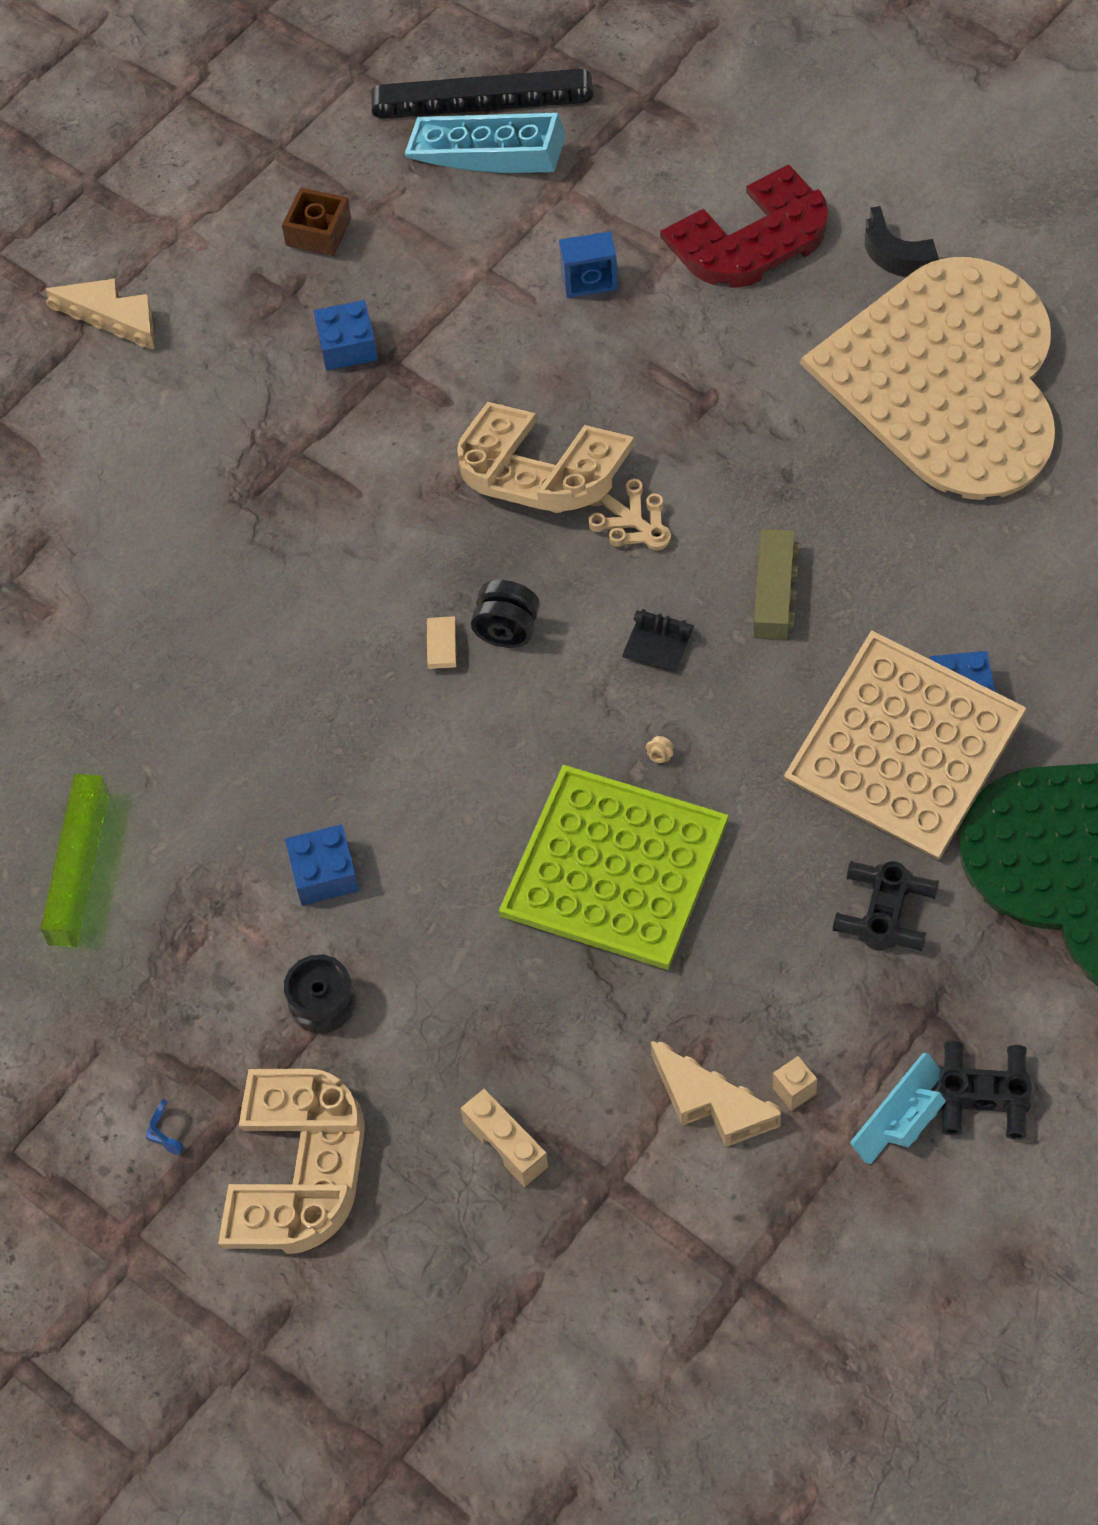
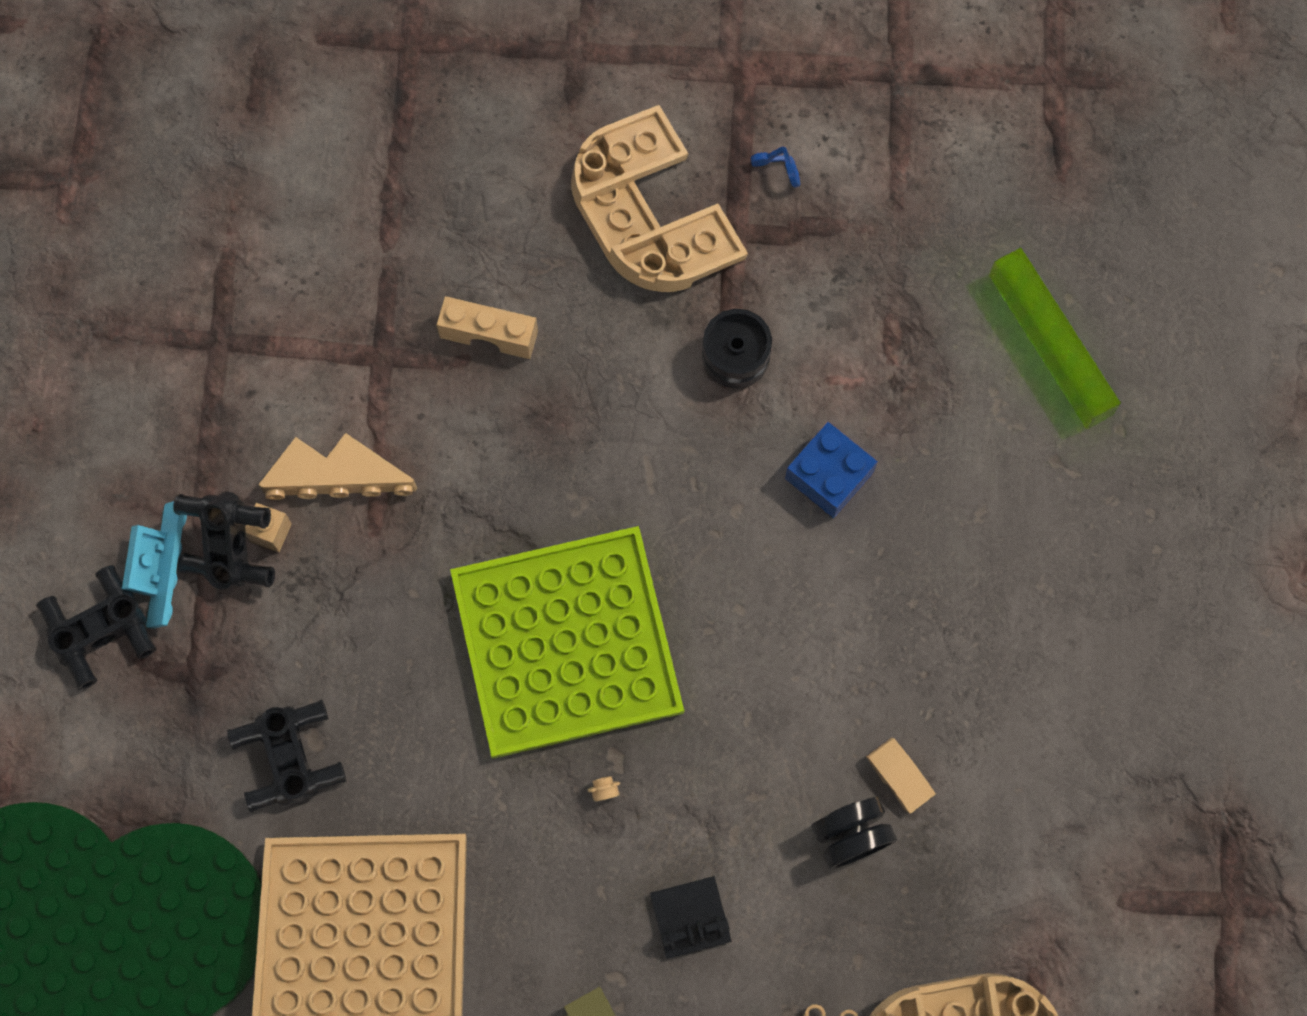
camera: 140 degrees right, 15 degrees up
(828, 1085) = (224, 540): none -> black piece

